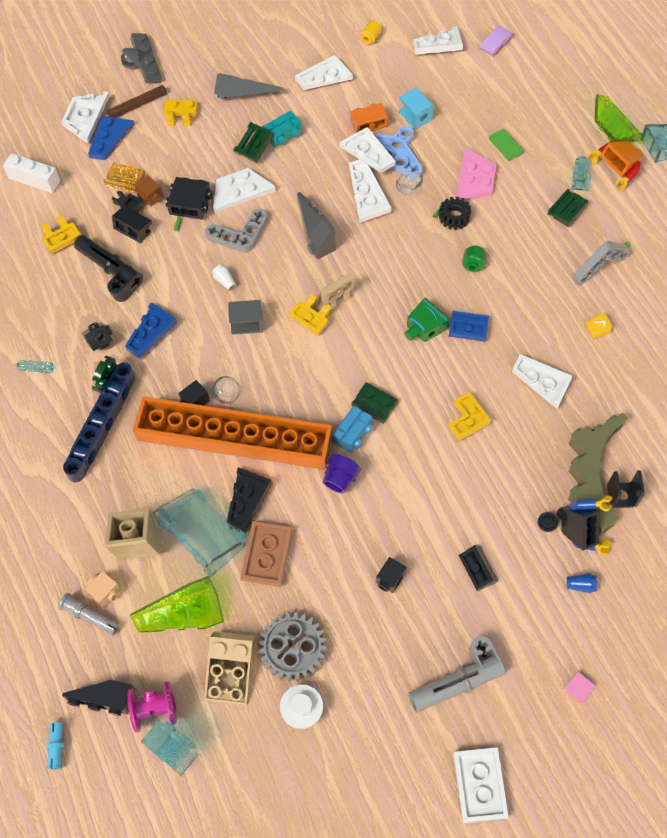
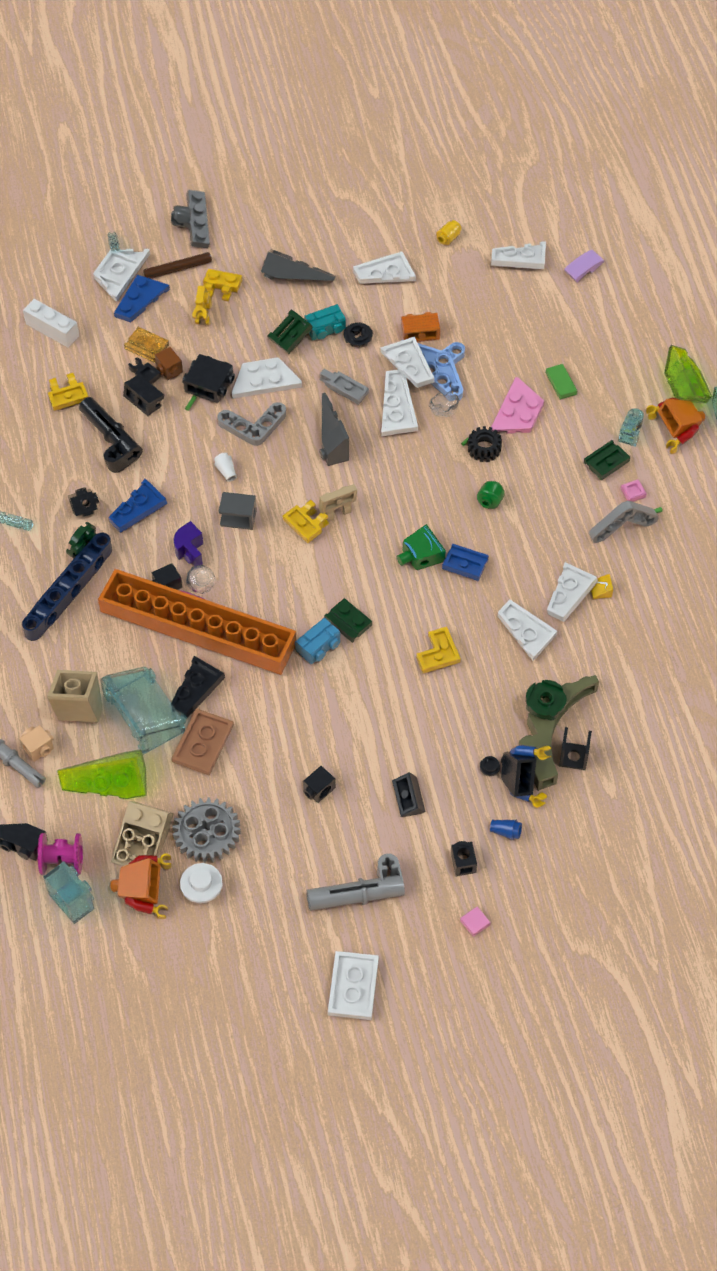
camera: 10 degrees right, 5 degrees down
(74, 90) = (113, 241): none -> clear light blue axle
(169, 131) = (203, 303): none -> yellow plate
(204, 357) = (186, 542): none -> dark purple brick
(240, 720) = (140, 883): none -> orange torso
(310, 130) = (355, 329): none -> black gear
(314, 182) = (344, 385): none -> light grey hinge
(340, 473) = (294, 679): dark purple piece -> none
(417, 108) = (474, 325): medium azure piece -> none
(551, 632) = (463, 866): none -> black brick
(572, 335) = (570, 591): none -> white wing
(586, 457) = (541, 709): none -> dark green plate
(599, 231) = (633, 491): none -> bright pink tile

